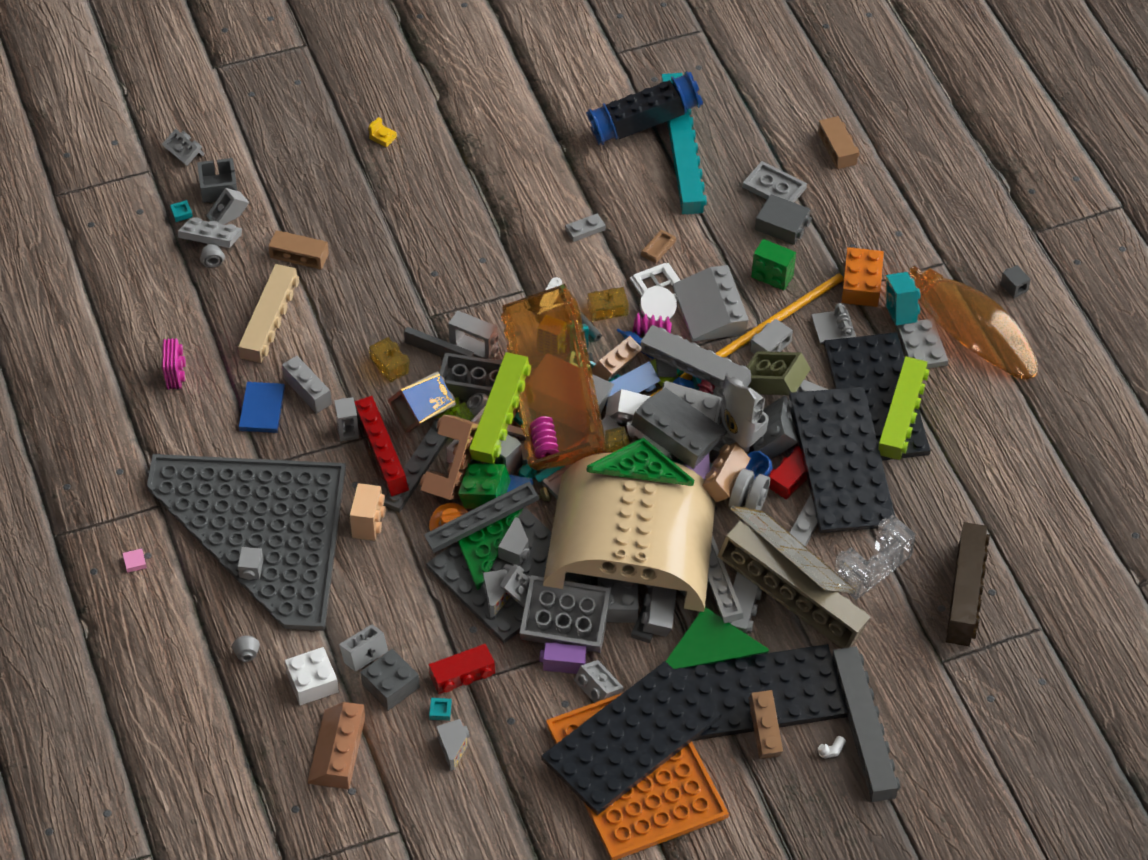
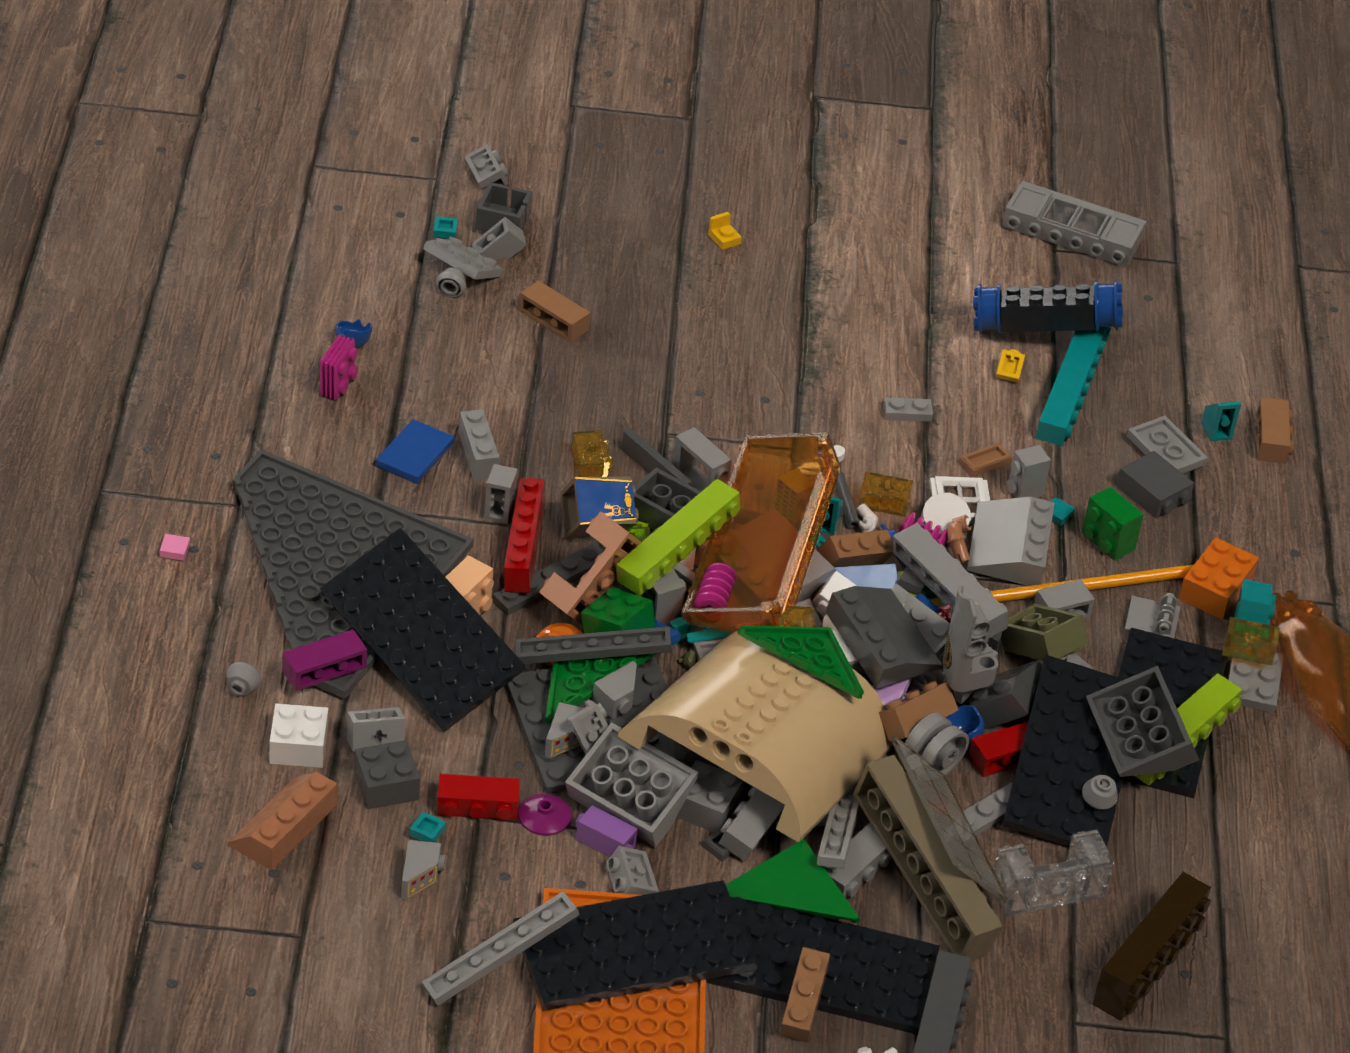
camera: 20 degrees right, 10 degrees down
(164, 328) = (354, 330): none -> blue hair
(250, 563) = (299, 593): light grey brick -> none
(268, 313) = (479, 360): tan brick -> none
(298, 609) = (324, 660): none -> magenta brick
(354, 555) = (422, 629): none -> black plate
(512, 667) = (544, 814): none -> magenta dish
(547, 783) = (500, 948): none -> light grey plate
(607, 329) = (869, 520): none -> white arm
(620, 27) = (1074, 223): none -> light grey window
(637, 163) = (1010, 365): none -> yellow bracket
(678, 321) = (956, 538): none -> nougat piece
(697, 247) = (1029, 472): none -> light grey brick
(733, 265) = (1062, 511): none -> teal tile
(800, 149) = (1220, 420): none -> teal slope
(876, 482) = (1100, 792): none -> light grey cone
(881, 421) = (1142, 725): none -> dark grey slope
(912, 320) = (1251, 641): none -> clear yellow brick

